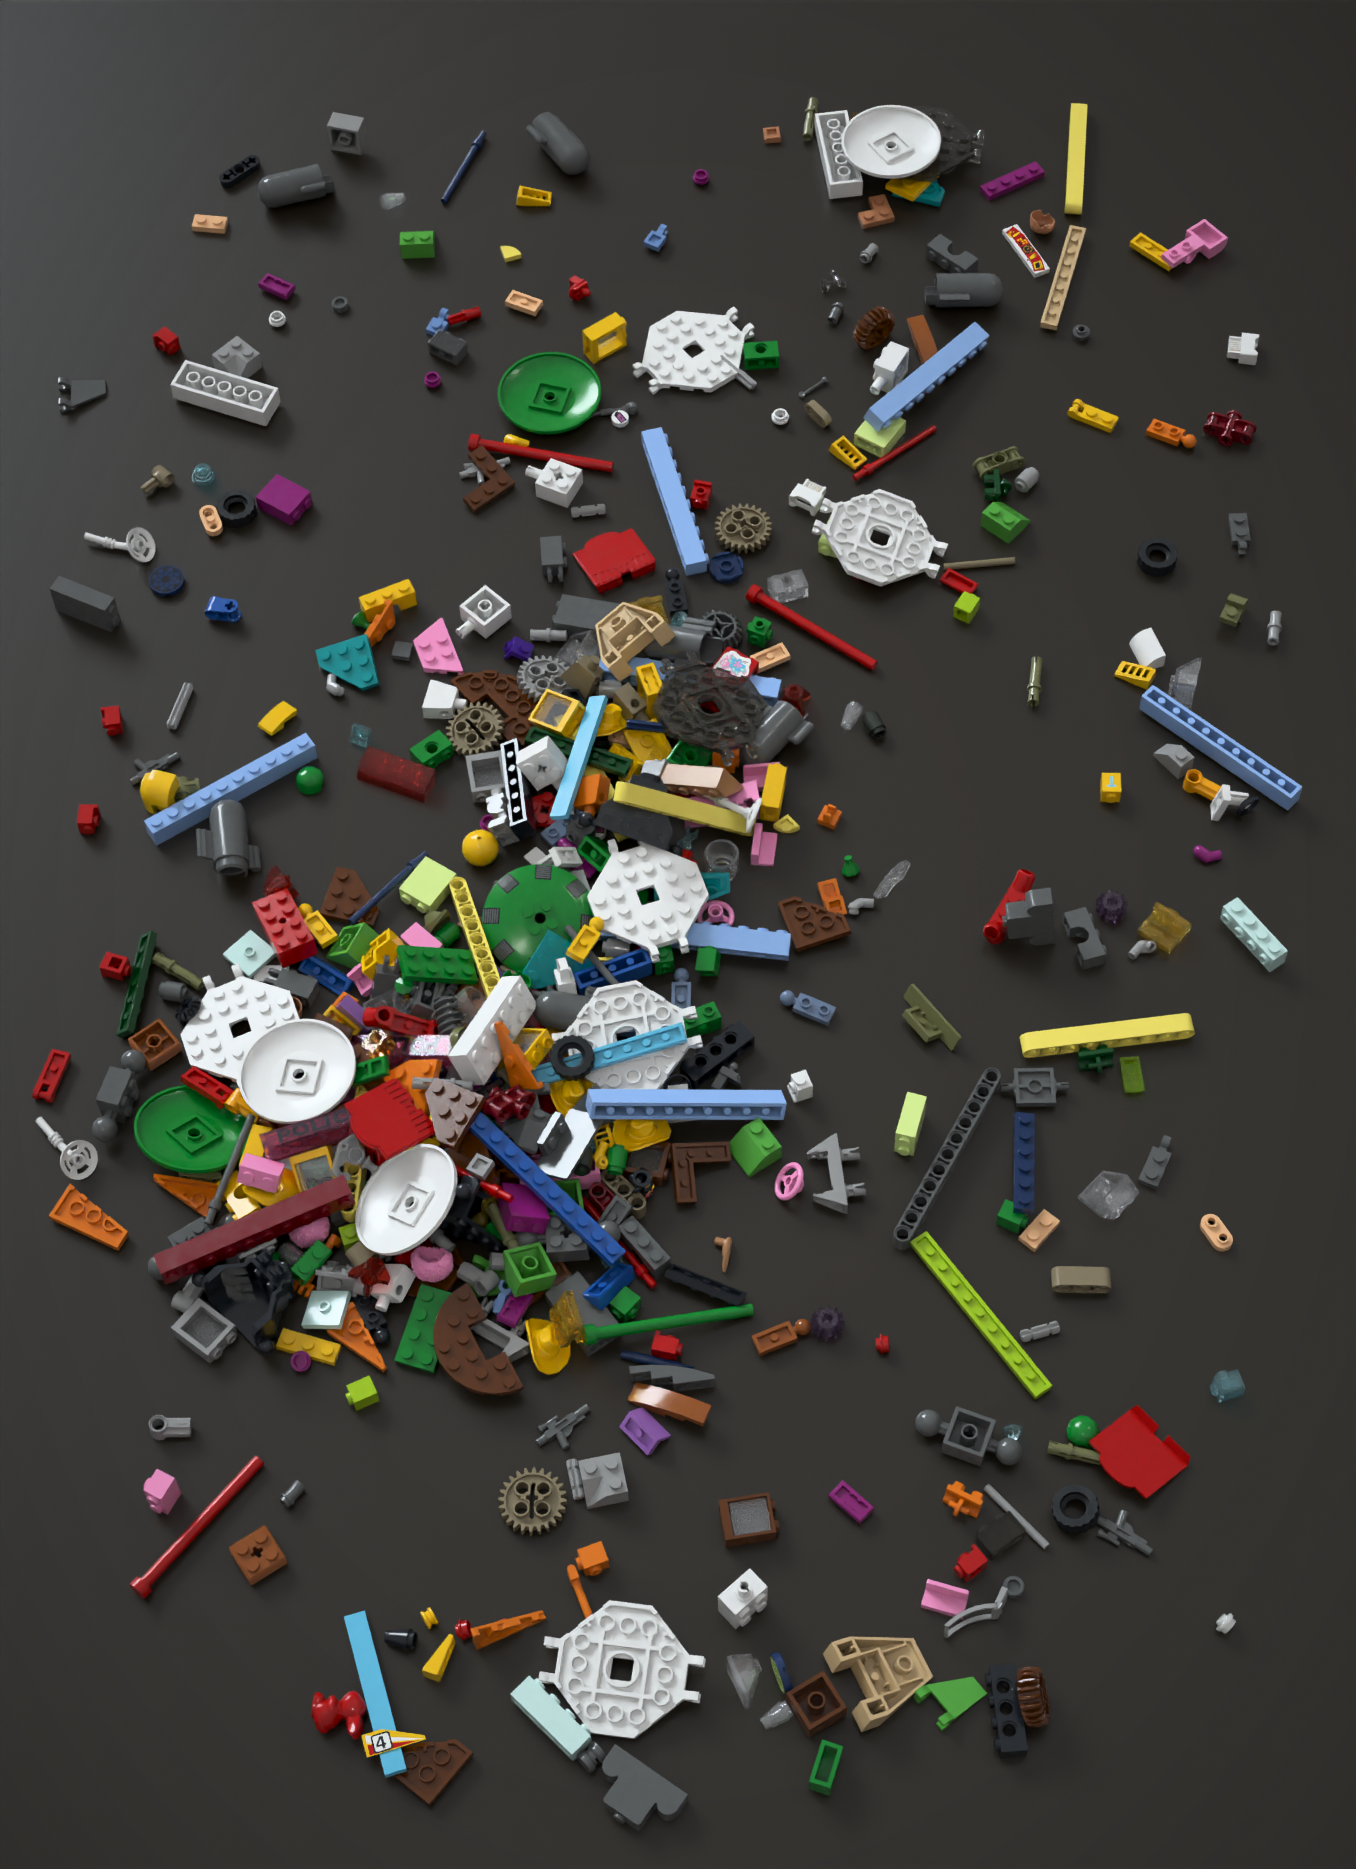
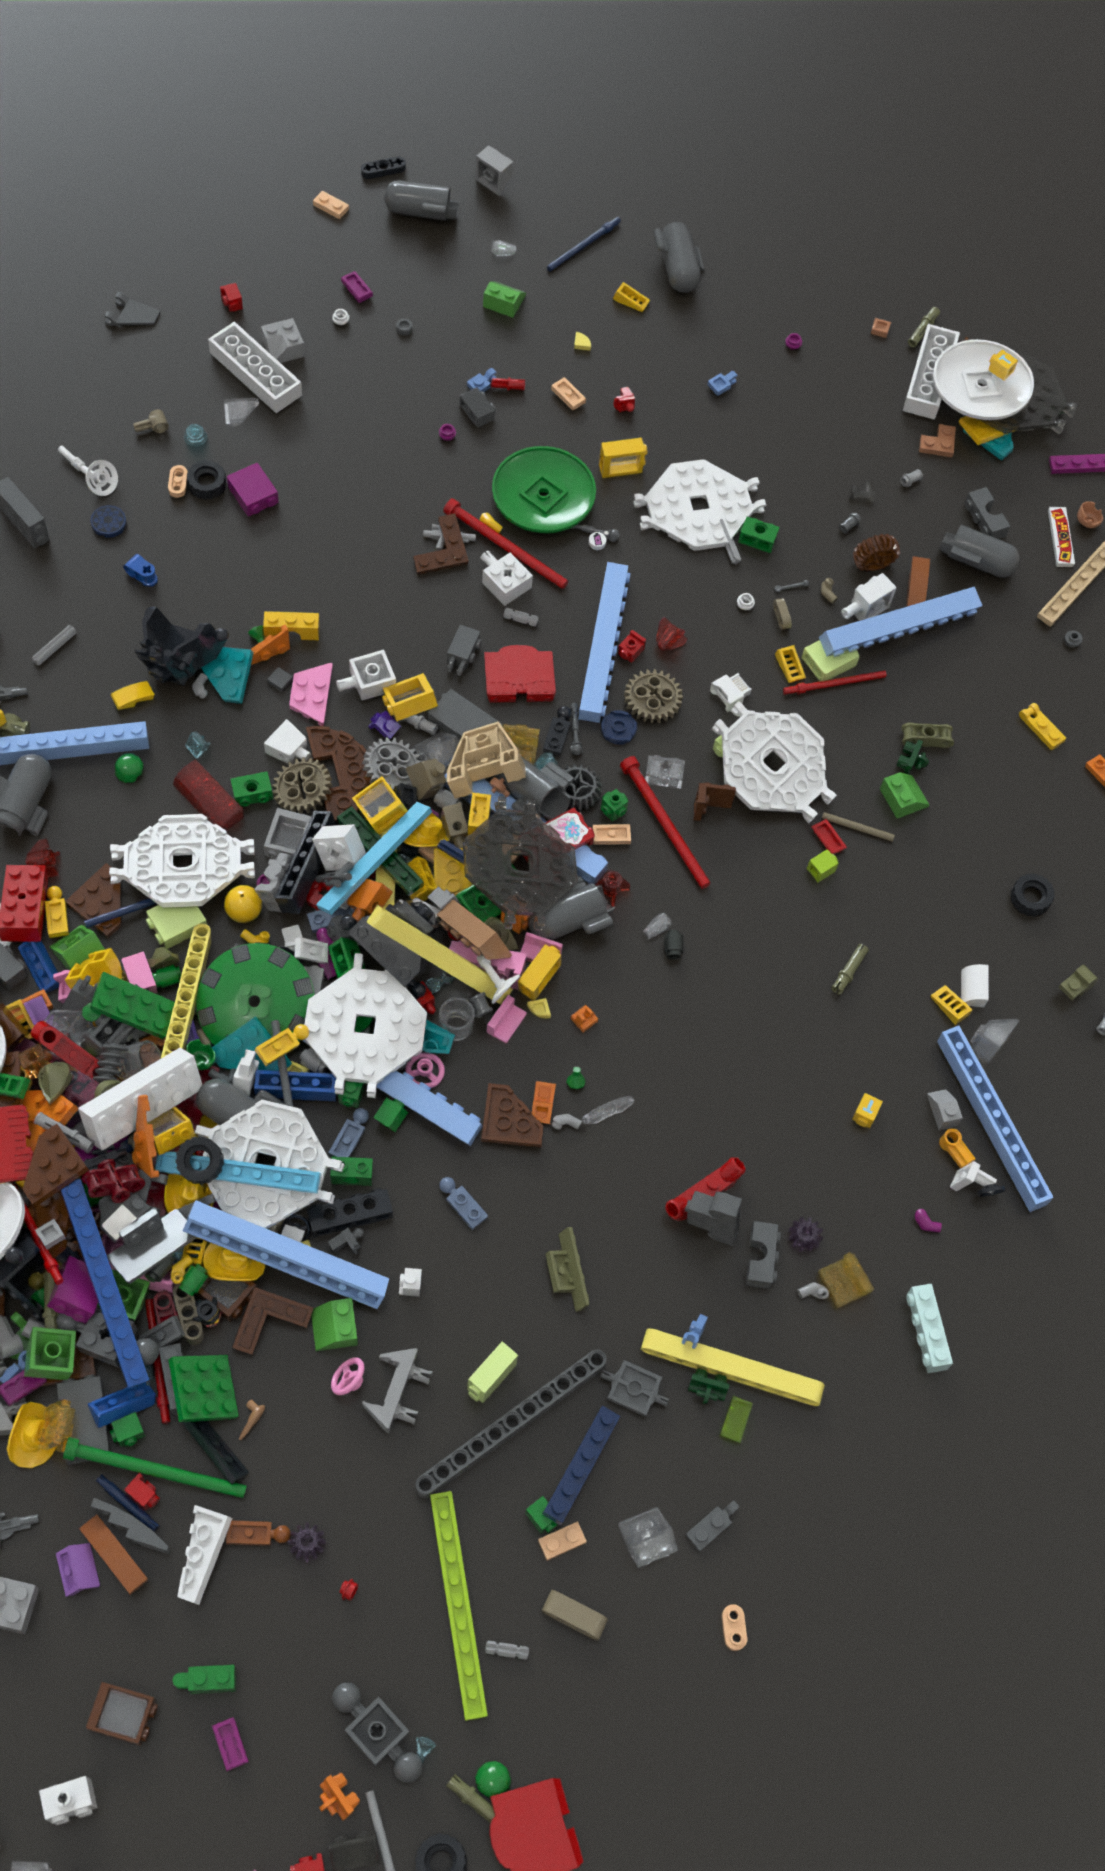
camera: 15 degrees right, 5 degrees up
(231, 436) = (239, 409): none -> clear slope
(301, 664) = (177, 652): none -> black piece
(380, 850) = (213, 867): none -> white plate
(405, 1051) = (54, 1080): none -> olive piece
(498, 874) = (263, 937): none -> yellow arm
(530, 616) = (409, 697): none -> yellow window
(555, 787) = (337, 877): none -> dark grey piece
(651, 655) = (497, 785): none -> nougat piece
(672, 1241) = (203, 1388): none -> green plate
(698, 598) = (576, 746): none -> dark grey piece
(730, 471) = (669, 635): none -> clear red brick
(738, 838) = (480, 1005): none -> dark grey connector
(742, 1360) = (205, 1544): none -> white wing
(805, 1461) = (207, 1679): none -> green brick
(842, 588) = (712, 795): none -> reddish brown bracket
(846, 379) = (826, 590): none -> dark tan arm
(902, 121) = (1002, 364): none -> yellow brick
(1026, 479) = (945, 763): light grey brick -> none
(1061, 1019) = (695, 1331): none -> medium blue plate
(1227, 1385) = (659, 1800): clear light blue brick -> none

